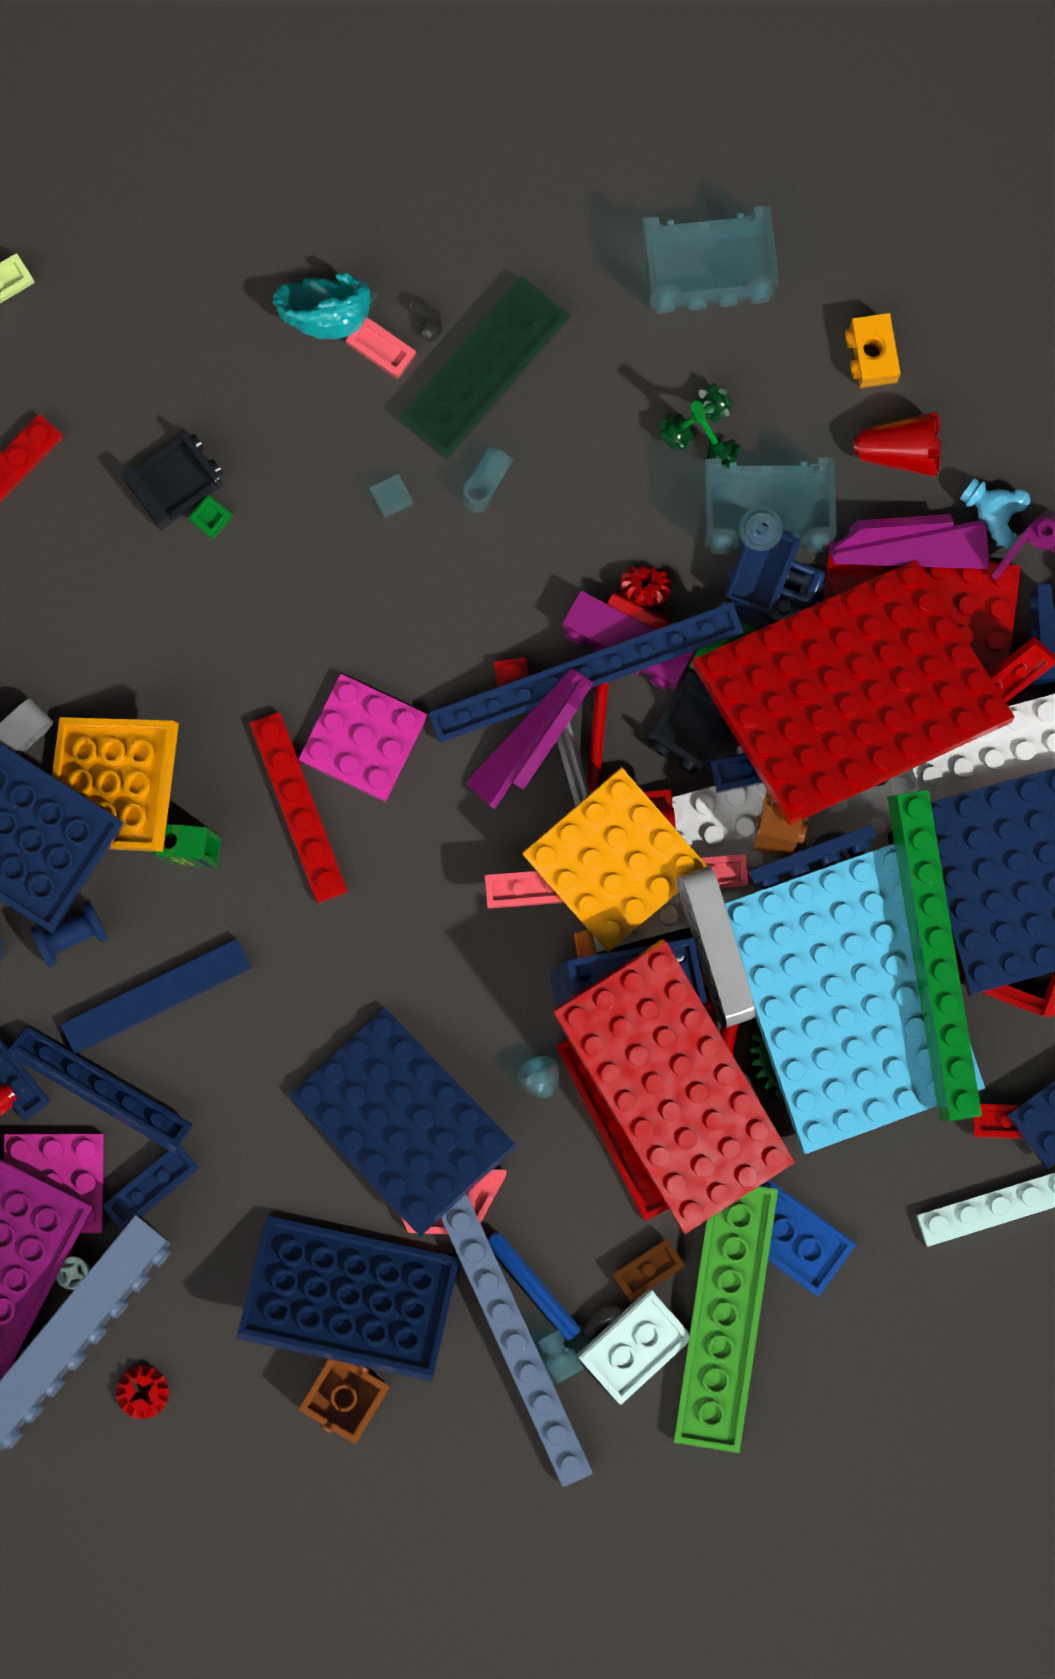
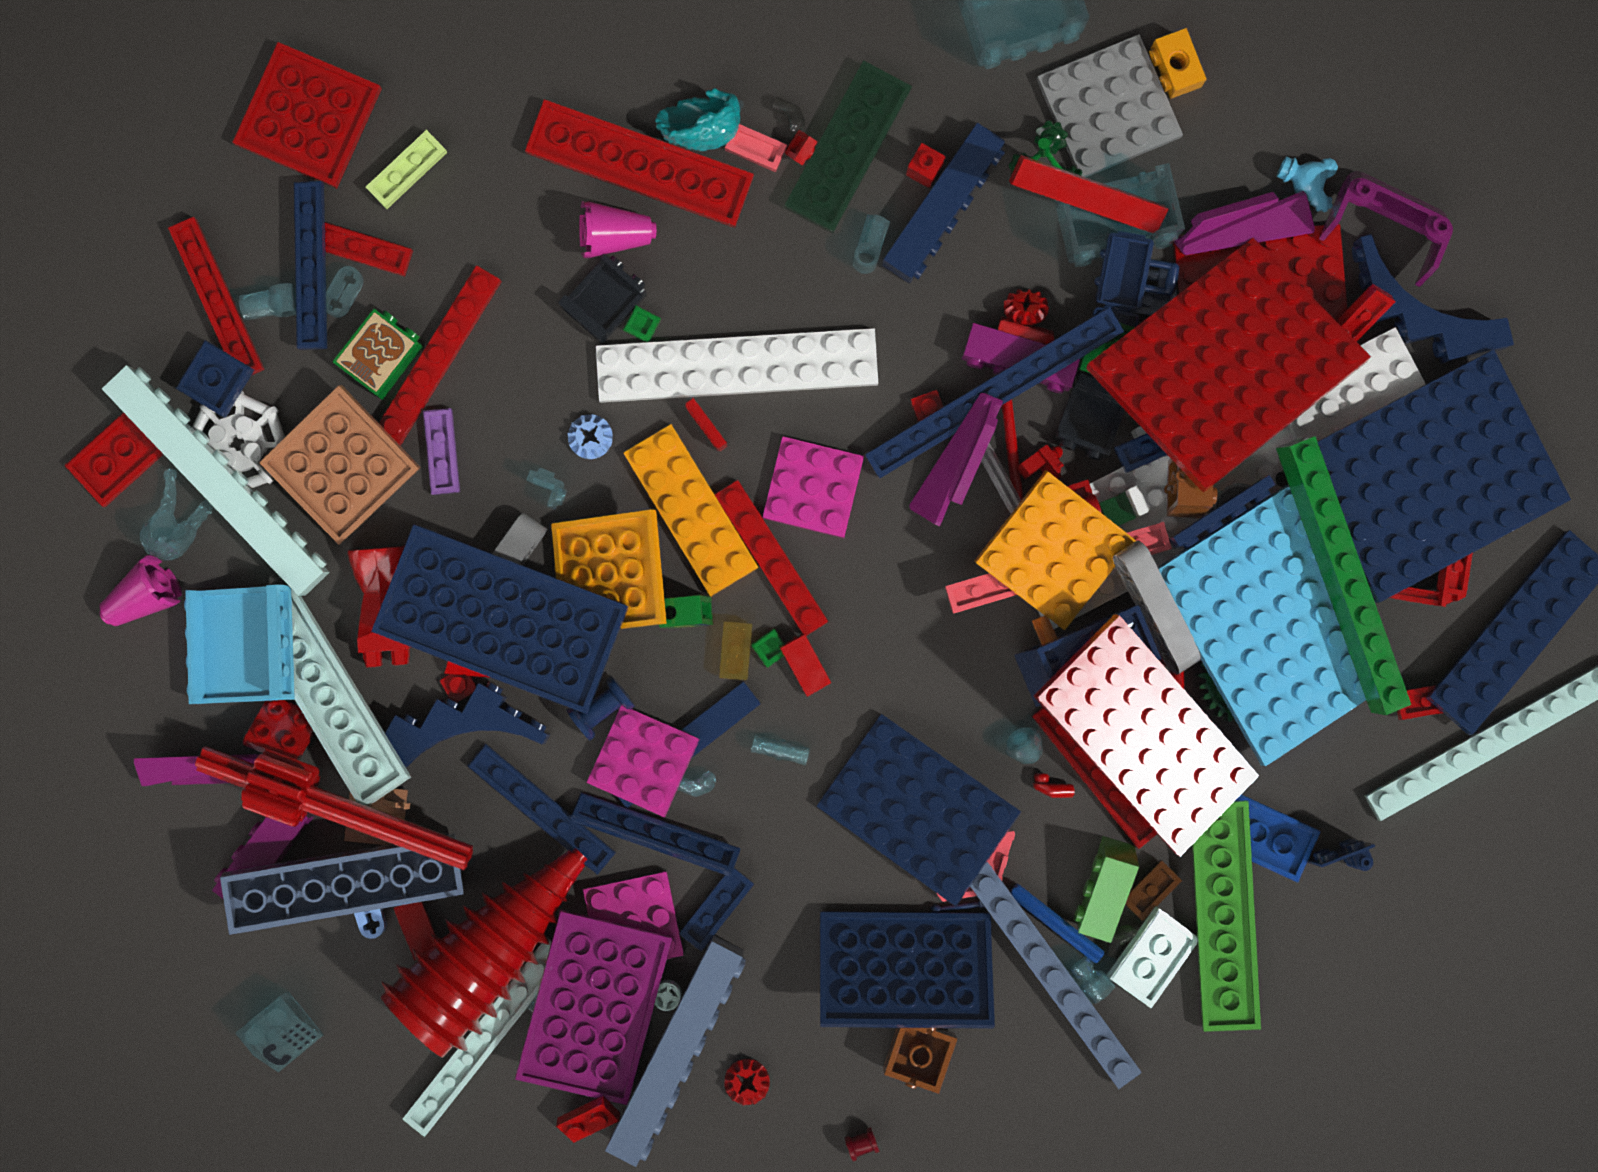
camera: 15 degrees left, 5 degrees up
(64, 667) = (545, 479): none -> clear light blue bracket
(104, 1003) = (643, 761): none -> dark pink plate
(122, 644) = (591, 449): none -> light blue gear
(158, 1046) = (698, 786): none -> clear light blue arm
(200, 405) = (612, 229): none -> dark pink cone
(219, 735) = (690, 510): none -> light orange plate
(235, 902) = (735, 650): none -> clear yellow plate
(246, 338) = (639, 163): none -> red plate
(257, 643) = (706, 425): none -> red tile
(257, 1489) = (861, 1144): none -> dark red bush
(262, 1024) = (780, 750): none -> clear light blue pin
(275, 908) = (768, 648): none -> green tile
(307, 584) = (736, 365): none -> white plate
(310, 934) = (805, 664): none -> red tile
(391, 496) = (793, 274): clear light blue plate -> none
(423, 1244) = (937, 909): none -> dark blue hinge
(430, 357) = (801, 147): none -> red plate
(560, 1133) = (1042, 785): none -> red arm
(566, 406) = (925, 165): none -> red brick
(577, 452) = (943, 204): none -> dark blue brick
(596, 1257) = (1107, 889): none -> bright green wedge
(630, 759) = (1043, 459): none -> red piece
(698, 831) = (1118, 509): none -> dark green tile
(719, 825) = (1137, 501): none -> white tile
(734, 473) = (1088, 194): none -> red tile
(753, 520) = (1113, 232): clear light blue cone -> none
(788, 383) = (1110, 106): none -> light grey plate
(886, 1274) = (1353, 852): none -> dark blue hinge
(903, 445) = (1220, 140): red cone -> none

